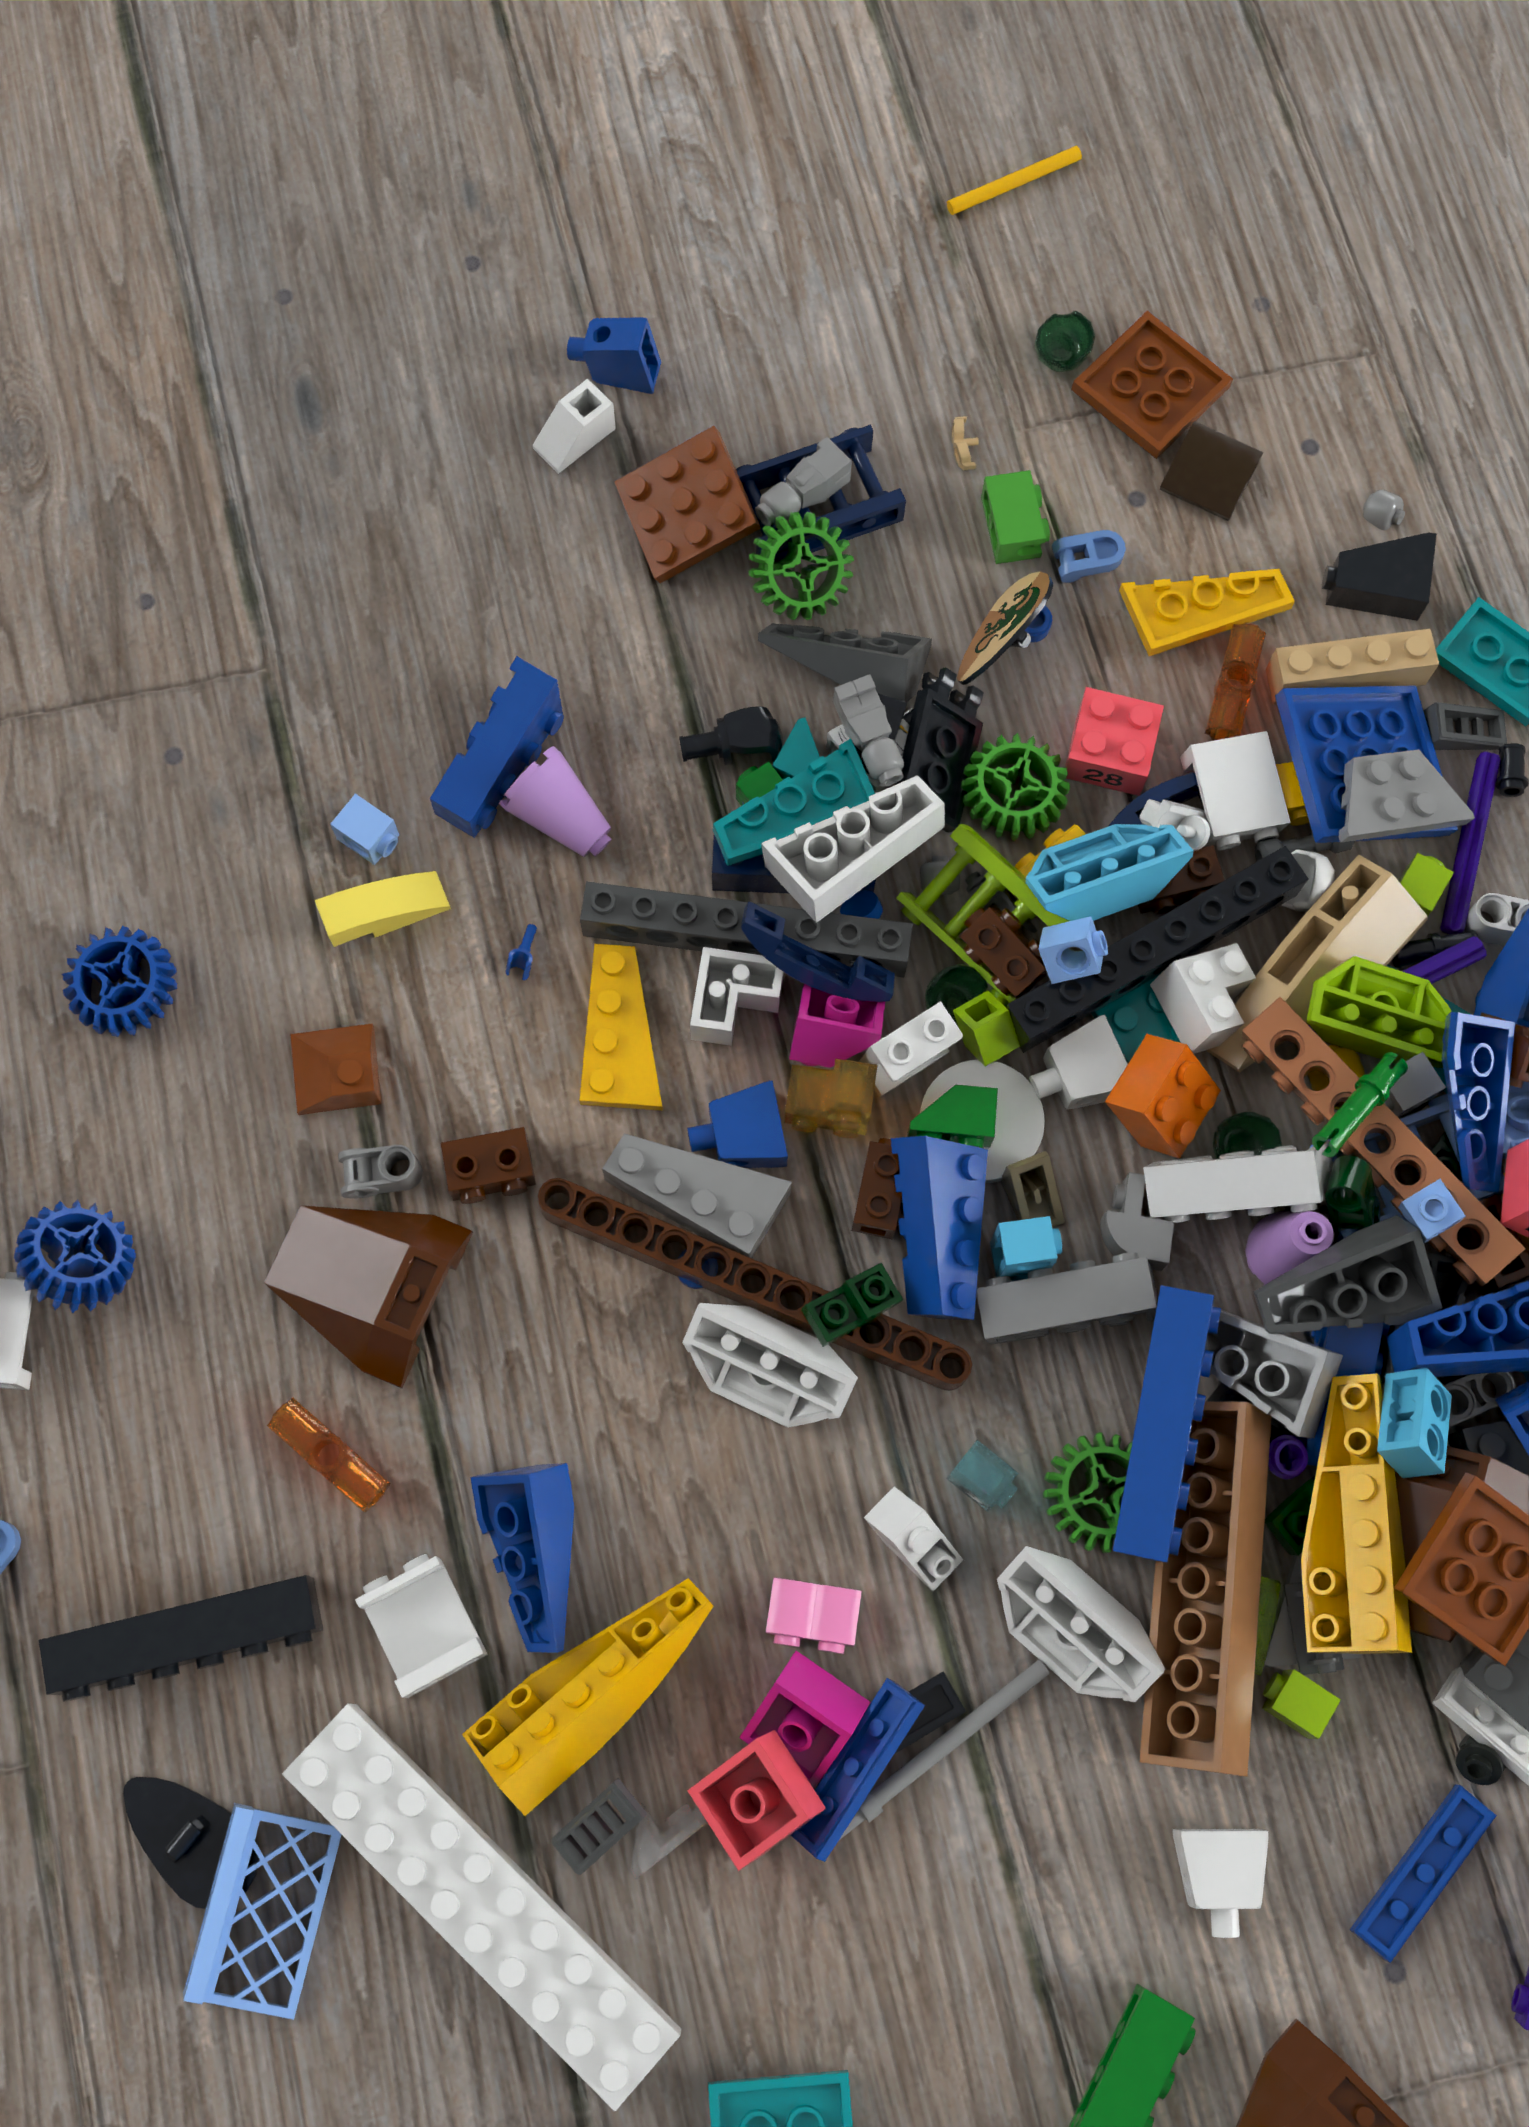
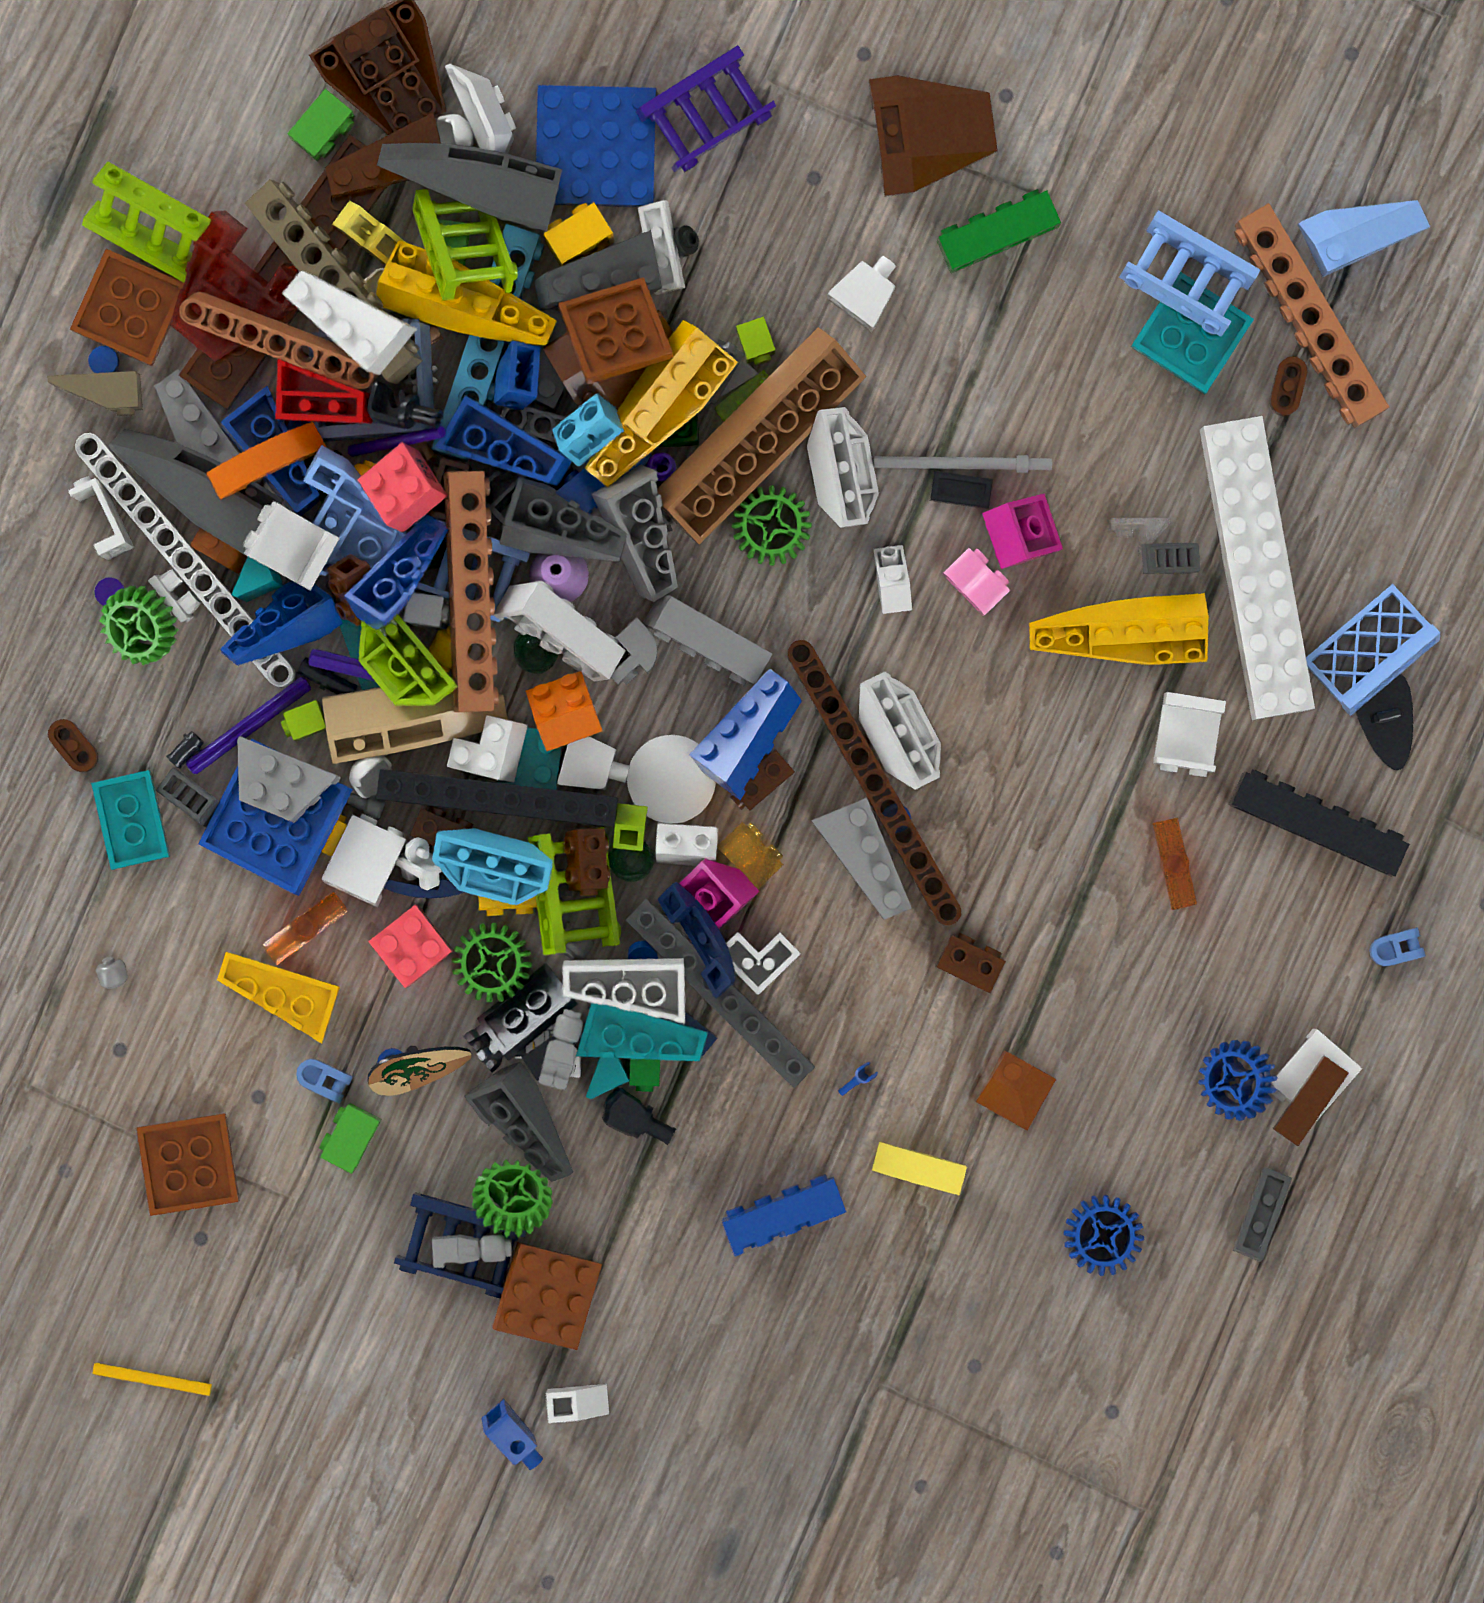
camera: 145 degrees left, 15 degrees up
(365, 830) = (895, 1224): light blue brick -> none
(367, 1280) = (1084, 948): reddish brown wedge -> none
(369, 1171) = (1036, 1008): light grey piece -> none
(532, 1531) = (1094, 738): blue wedge -> none
(558, 805) = (772, 1153): lavender cone -> none
(618, 1044) = (844, 981): yellow wing -> none
(744, 1129) = (812, 875): blue torso -> none
(756, 1799) = (1079, 509): coral brick -> none
(852, 1304) = (831, 726): dark green slope -> none
(859, 1766) = (1015, 485): blue tile -> none
(960, 1116) = (687, 788): green slope -> none
(961, 445) = (339, 1216): tan piece -> none
(984, 1477) = (829, 582): clear light blue brick -> none
(1024, 1247) = (710, 684): medium azure brick -> none
(1033, 1189) = (678, 712): dark tan slope -> none
(1064, 341) = (221, 1233): clear green hair -> none
(1065, 964) = (555, 827): light blue brick -> none
(1164, 1424) = (717, 532): blue brick -> none
(1211, 470) = (199, 1078): dark brown slope -> none
(1351, 1195) = (511, 573): dark green piece -> none
(1356, 662) = (227, 884): tan brick -> none
(1370, 1092) = (459, 619): green pin -> none
(1383, 577) = (156, 926): black slope -> none
(1422, 1873) = (759, 212): blue tile -> none
(1432, 1210) = (484, 529): light blue brick -> none

